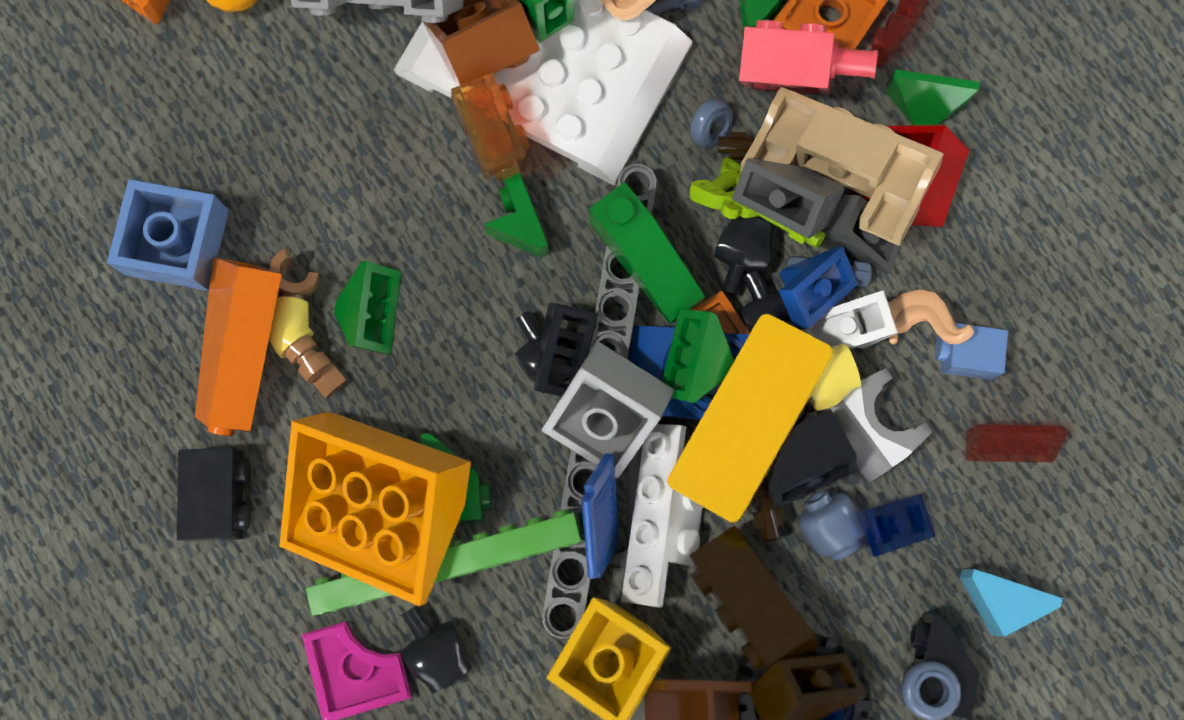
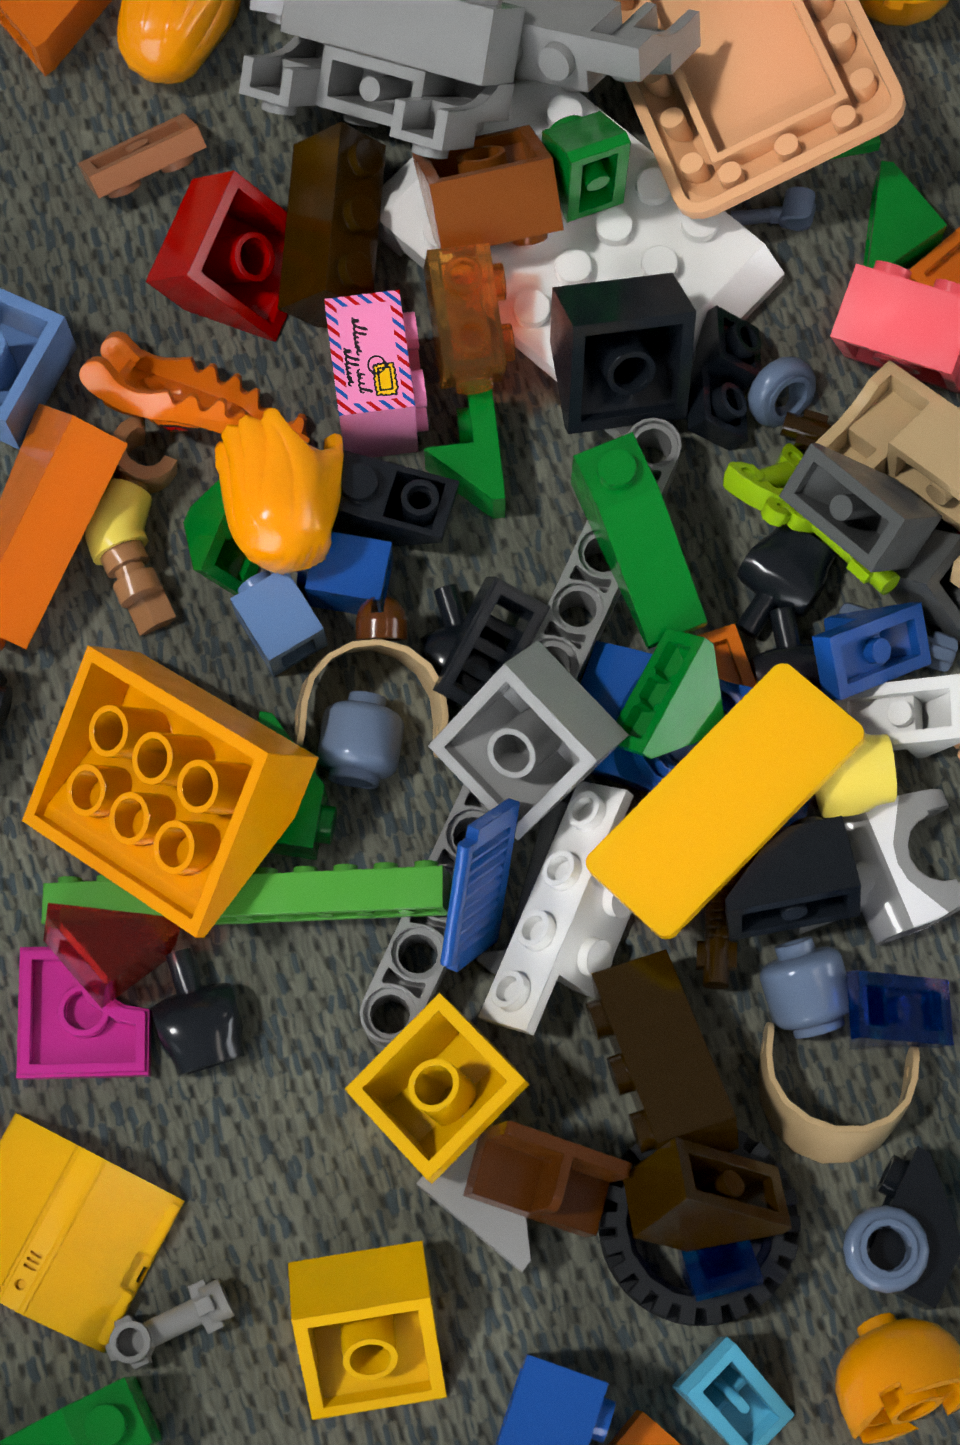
camera: 15 degrees right, 5 degrees down
(250, 56) = (163, 147): none -> nougat plate
(314, 227) = (170, 389): none -> orange animal
(318, 120) = (225, 255): none -> red slope
(360, 622) = (108, 947): none -> clear red slope
(380, 84) = (331, 221): none -> dark brown brick
(394, 281) = (279, 492): none -> light orange hair
(415, 365) = (278, 620): none -> medium blue brick
(436, 182) = (376, 373): none -> bright pink brick
(453, 321) = (350, 574): none -> blue brick
(468, 266) = (393, 502): none -> black slope
(487, 355) = (385, 625): none -> reddish brown hinge
(493, 433) = (360, 740): none -> sand blue head
(525, 377) = (404, 654): none -> tan piece
(600, 124) = (622, 351): none -> black slope
(668, 117) = (721, 370): none -> black slope
(865, 624) = (818, 1138): none -> tan piece

